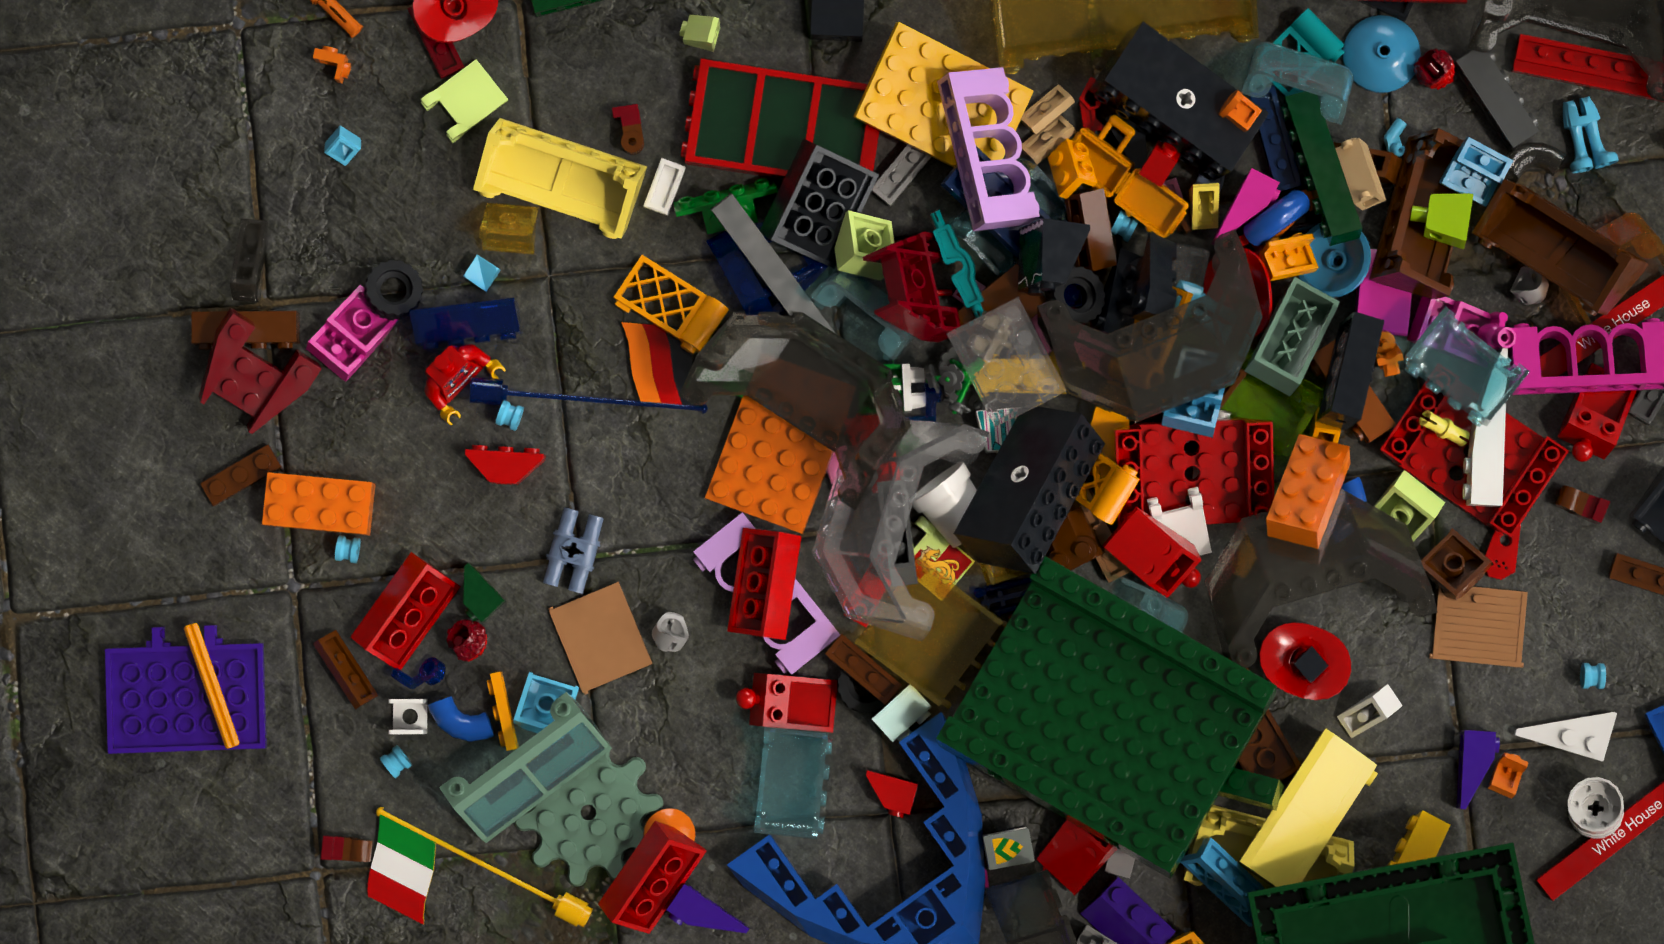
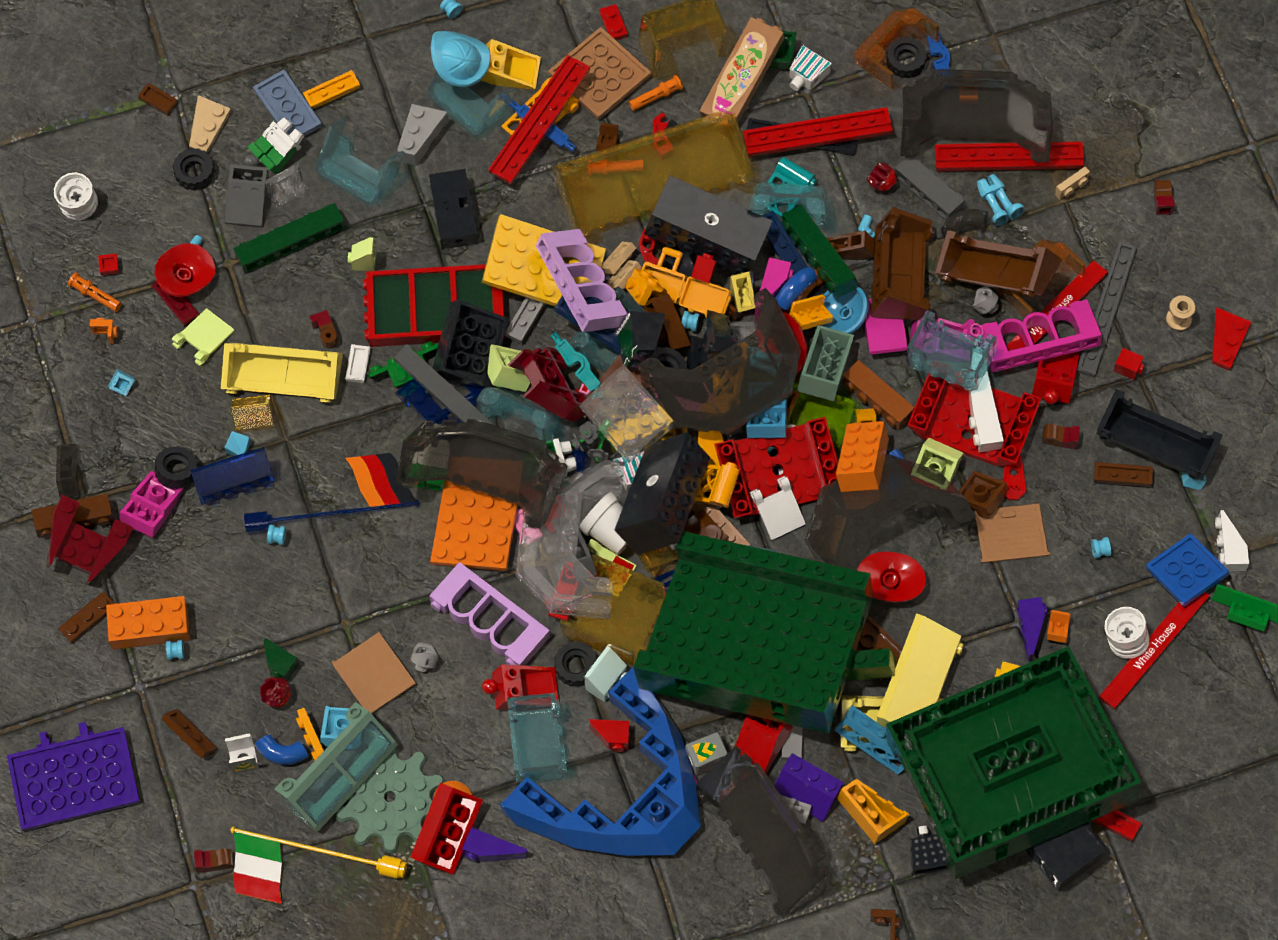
camera: 10 degrees left, 20 degrees down
(211, 685) = (90, 762): light orange axle -> none
(396, 761) = (238, 789): medium azure wheel -> none
(405, 611) = (226, 684): red slope -> none
(430, 672) = (252, 723): clear blue plate -> none
(452, 372) = (229, 513): red torso -> none
(505, 464) = (280, 568): red slope -> none
(565, 538) = (348, 622): sand blue pin -> none
(699, 323) = (395, 447): light orange piece -> none
(764, 583) = (485, 603): red slope -> none
(863, 669) = (570, 648): reddish brown plate -> none
(1155, 553) = (761, 524): red slope -> none
(1240, 110) = (751, 220): orange tile -> none
(1310, 664) = (894, 577): black slope -> none
(1350, 371) = (871, 372): black brick -> none
(1360, 173) = (846, 247): tan brick -> none
(1369, 711) = (947, 604): white slope -> none
(1372, 69) = (843, 187): dark azure dish -> none
(1388, 354) = (895, 363): orange hips -> none
(1444, 428) = (949, 400): light yellow pin -> none
(1445, 218) = (913, 265): lime torso -> none
(1476, 171) = (926, 232): dark azure slope -> none
(1581, 735) = (1101, 592): white wing -> none

